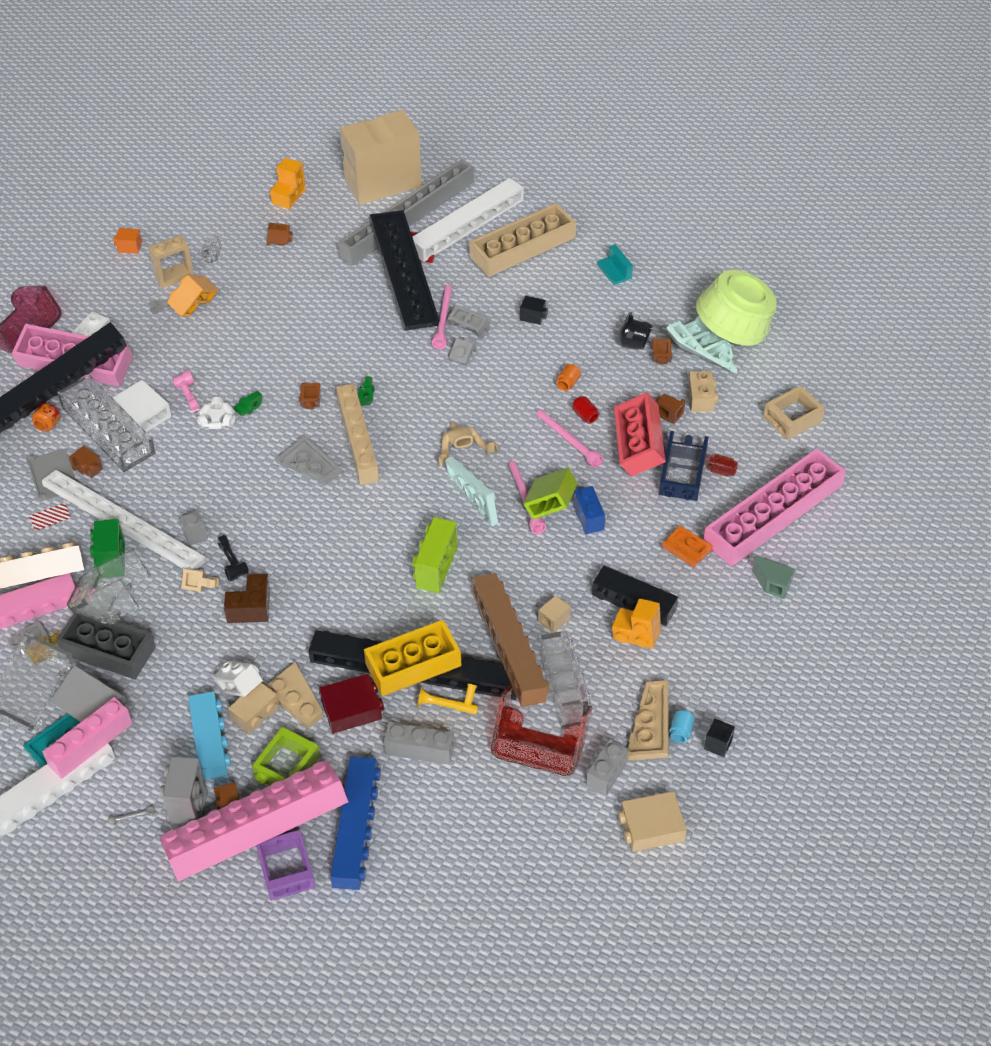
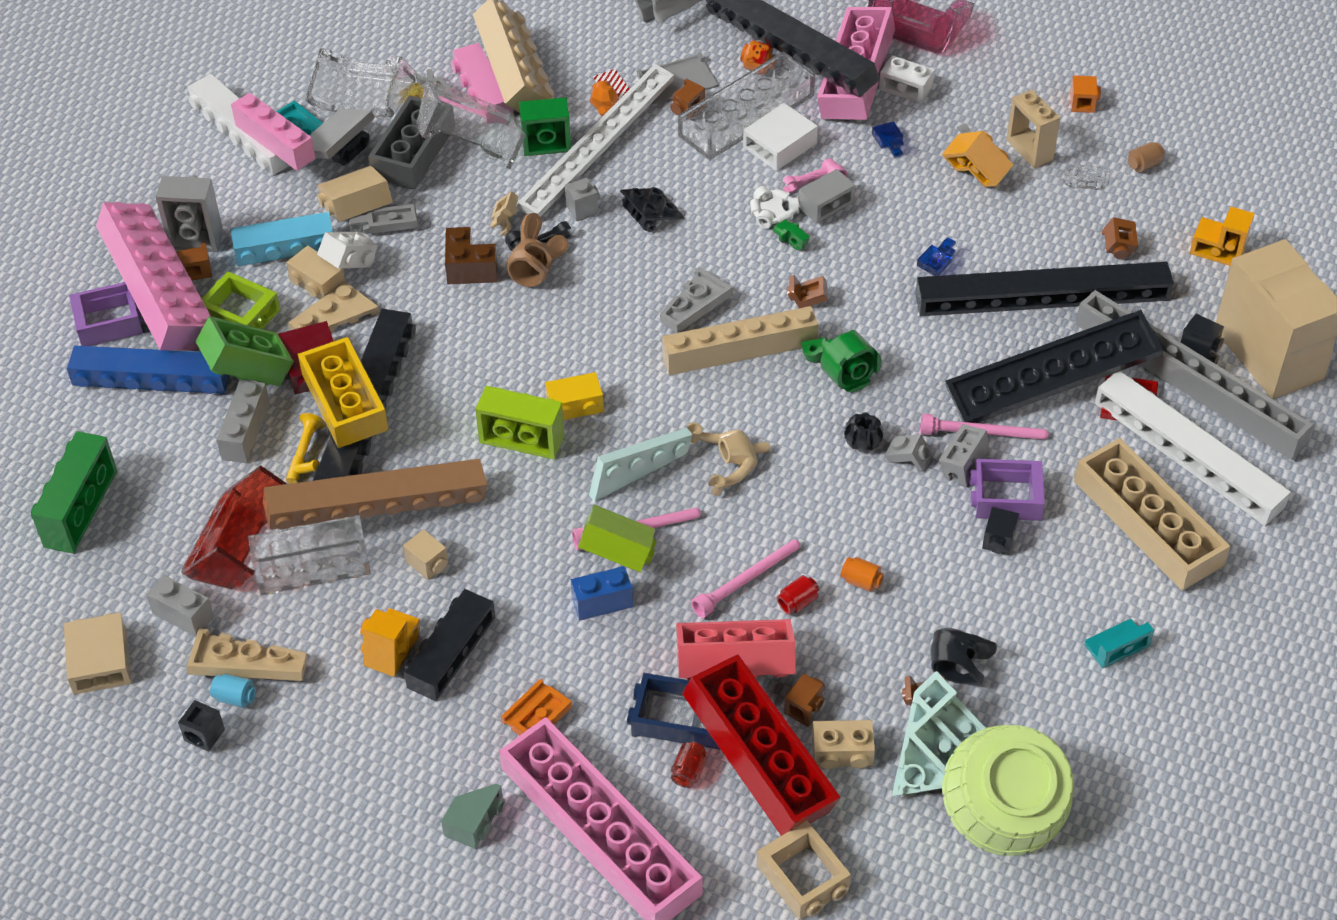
camera: 90 degrees right, 0 degrees up
(73, 516) = (603, 97): none -> orange rock
(150, 349) = (889, 136): none -> clear blue plate
(165, 681) = (354, 193): none -> tan brick
(193, 663) = (385, 219): none -> light grey hinge
(199, 216) = (1146, 156): none -> medium nougat brick
(200, 488) = (648, 206): none -> black hinge
(214, 380) = (826, 195): none -> light grey brick
(258, 555) = (532, 259): none -> medium nougat piece
(284, 328) = (936, 259): none -> clear blue plate
(320, 277) = (1042, 288): none -> black brick
(361, 733) = (244, 351): none -> bright green brick
(385, 197) = (1203, 337): none -> black brick
(386, 371) = (850, 361): none -> green brick
(405, 530) = (579, 395): none -> yellow brick
(448, 370) = (863, 432): none -> black piece
(498, 852) = (74, 492): none -> green brick
(509, 292) = (1008, 471): none -> medium lavender window
(718, 419) = (760, 745): none -> red brick

